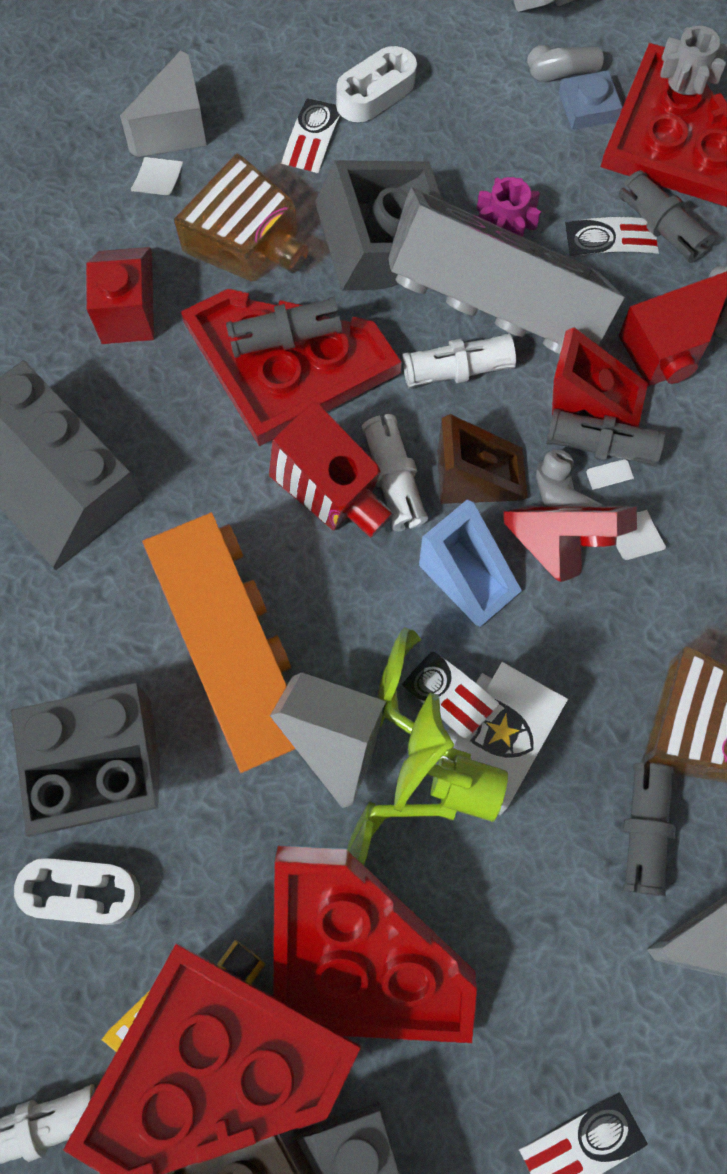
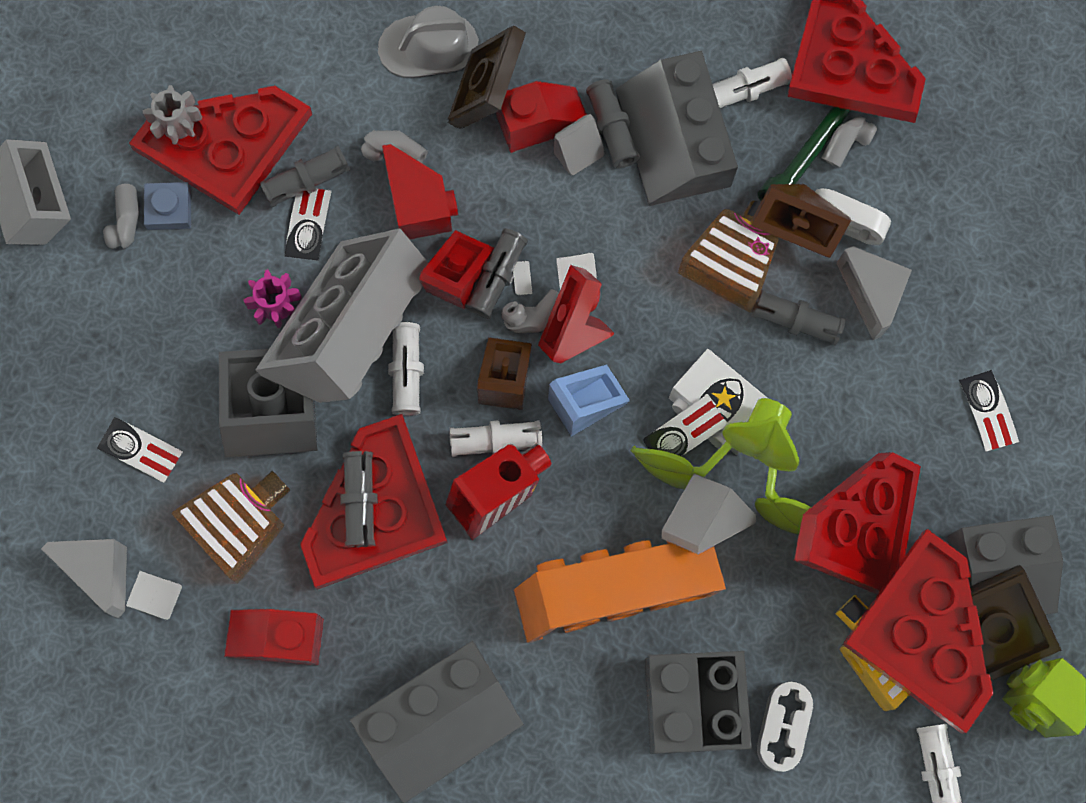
camera: 85 degrees left, 5 degrees up
(372, 80) = (113, 378): white beam -> none

